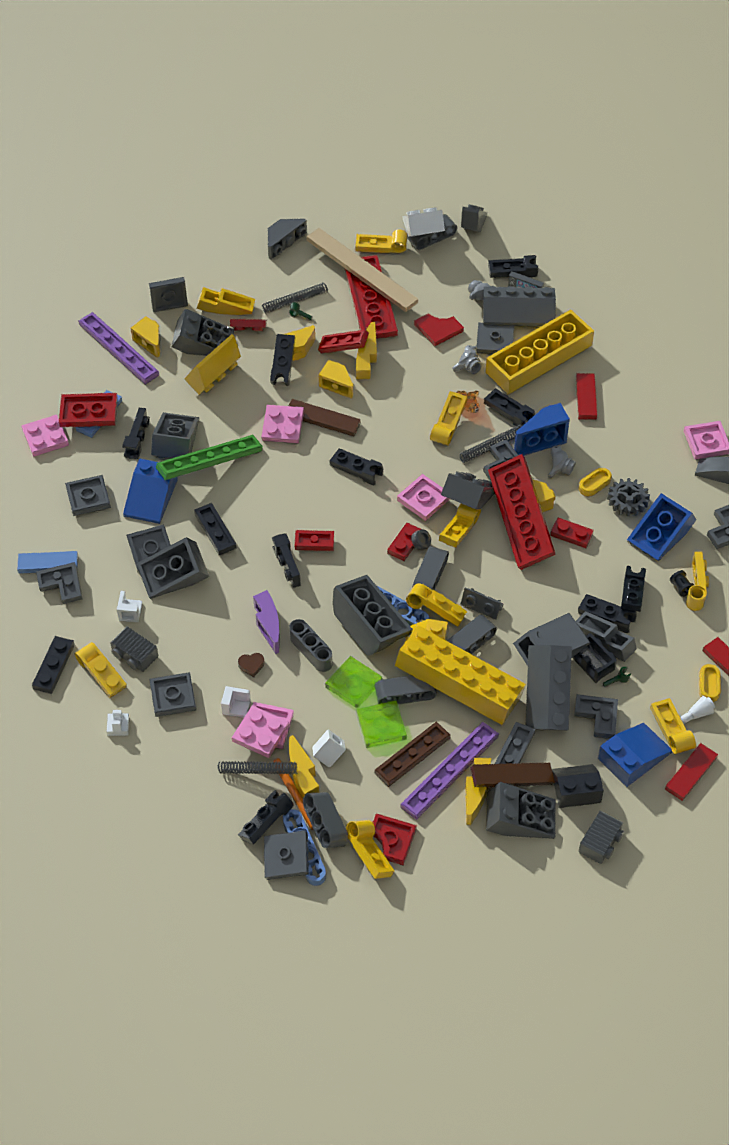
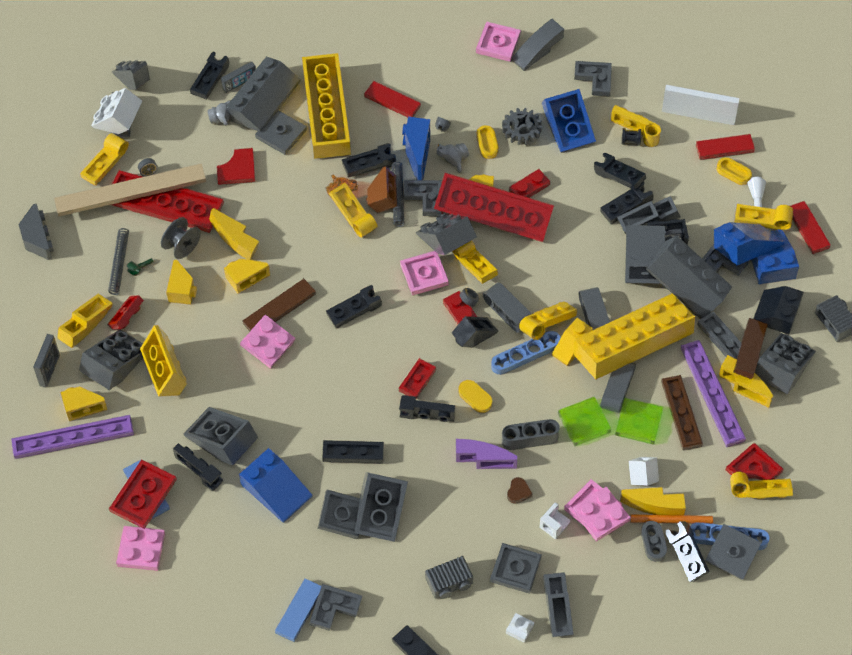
camera: 60 degrees left, 5 degrees up
(87, 495) = (243, 541): dark grey plate -> none
(101, 669) = (453, 614): yellow plate -> none
(128, 609) = (399, 563): white panel -> none
(154, 741) = (558, 604): none -> dark grey slope
(208, 457) = (273, 417): bright green tile -> none
(256, 767) = (629, 538): dark grey piece -> none
(260, 788) = (654, 542): none -> dark grey plate
(283, 358) = (196, 303): black plate -> none
(324, 590) = (475, 396): none -> yellow tile
(325, 820) = (725, 506): dark grey beam -> none
(336, 318) = (181, 238): none -> dark grey piece
(343, 341) = (210, 245): red tile -> none
(368, 615) = (534, 373): dark grey windscreen -> none
(388, 558) = (473, 331): none -> black slope
(394, 271) = (147, 167): none -> dark grey tile
(469, 361) = (294, 162): light grey animal -> none
(481, 603) = (564, 286): dark grey hinge -> none
(483, 428) = (382, 191): none -> dark orange slope
(587, 441) = (445, 124): none -> dark grey hinge
(620, 677) = (693, 227): dark green hand -> none
(627, 718) = (744, 241): none -> blue slope

